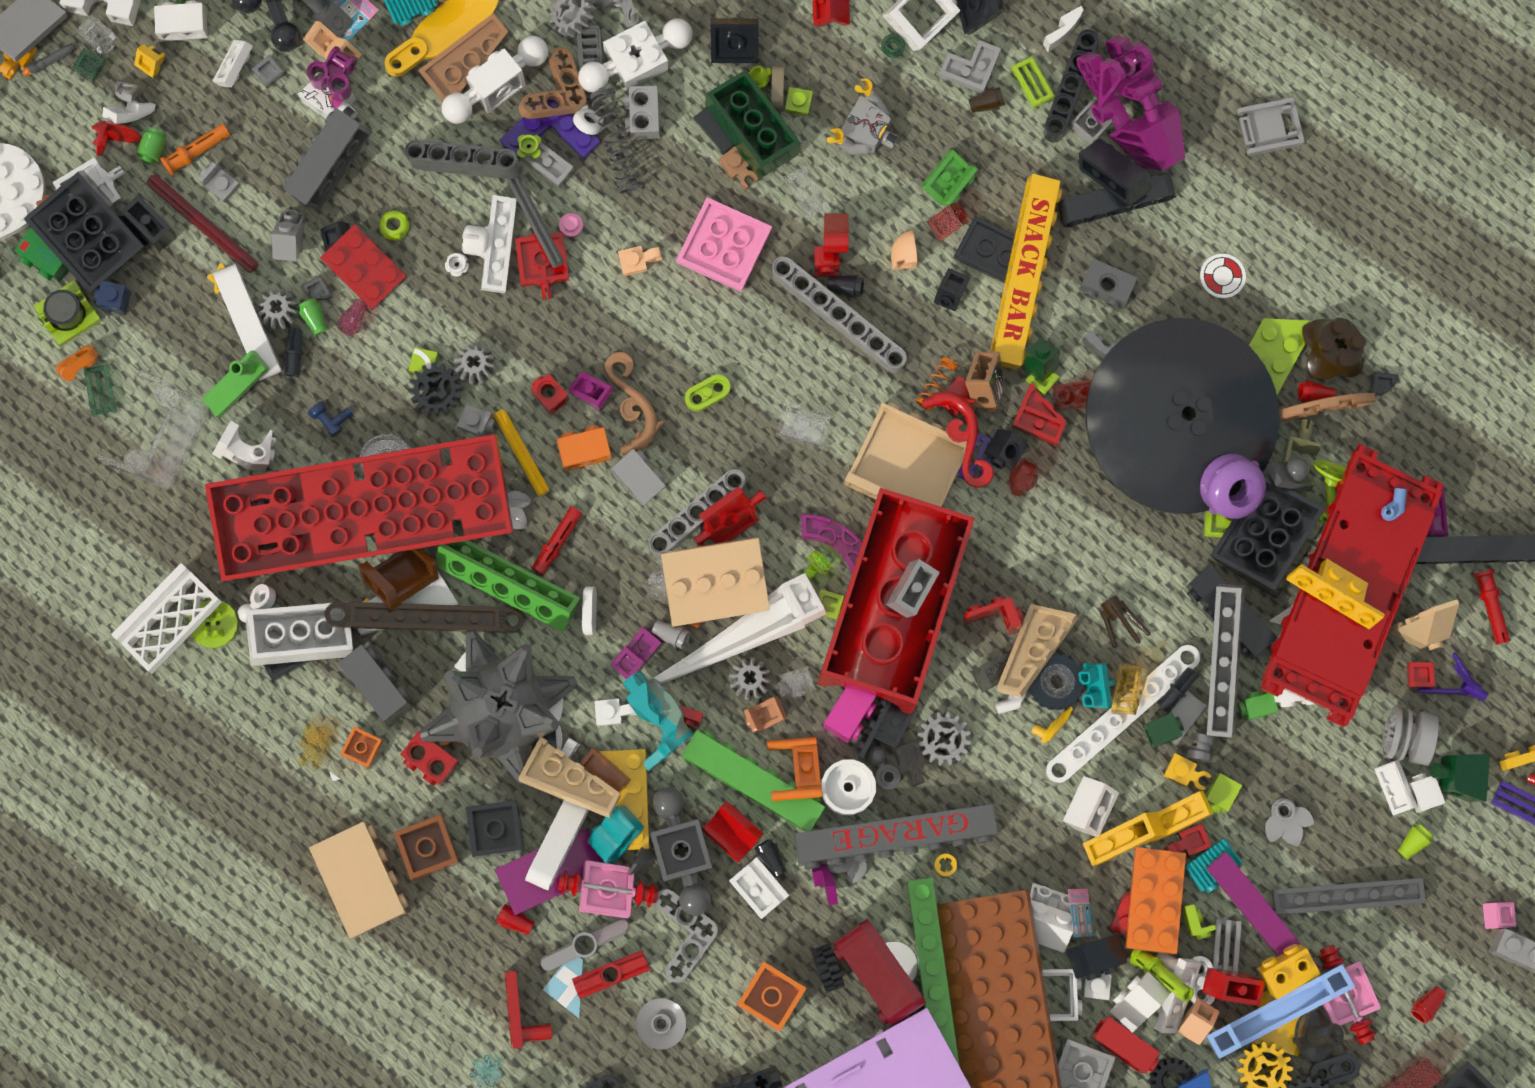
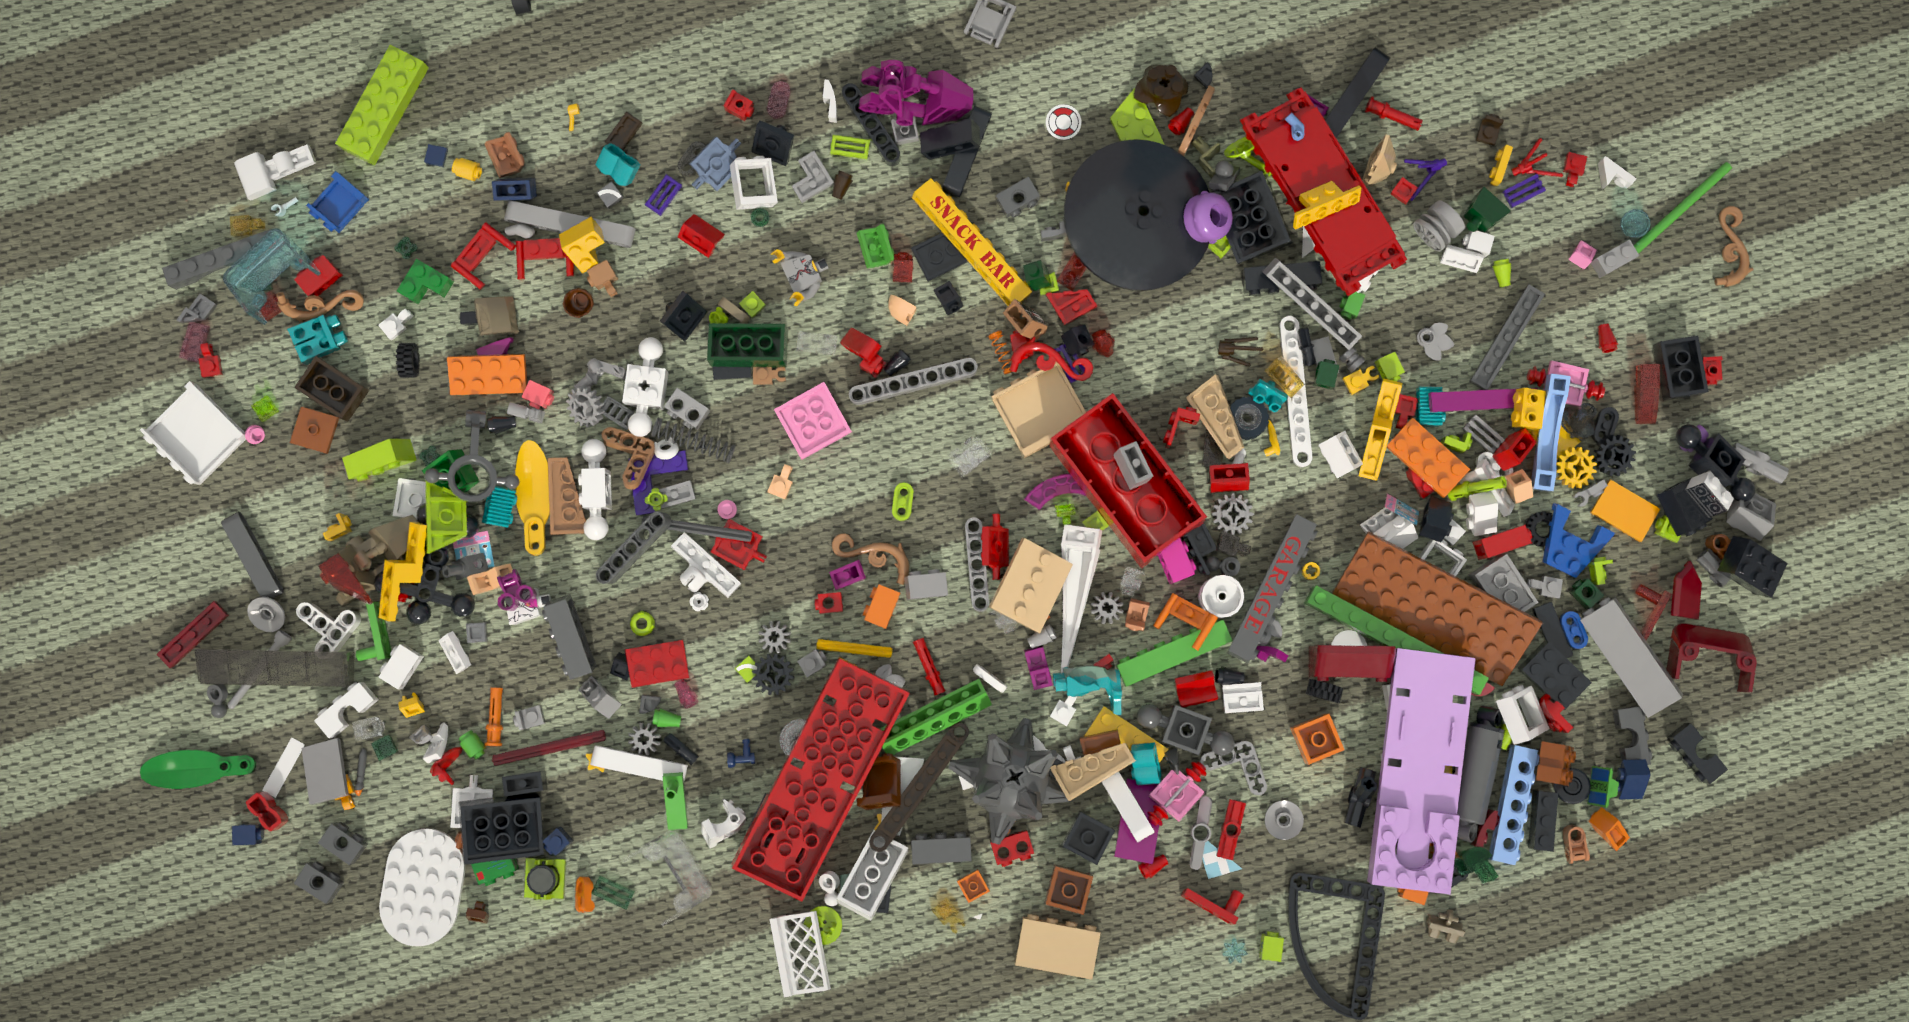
camera: 55 degrees left, 5 degrees up
(979, 707) = (1229, 477): none -> red brick

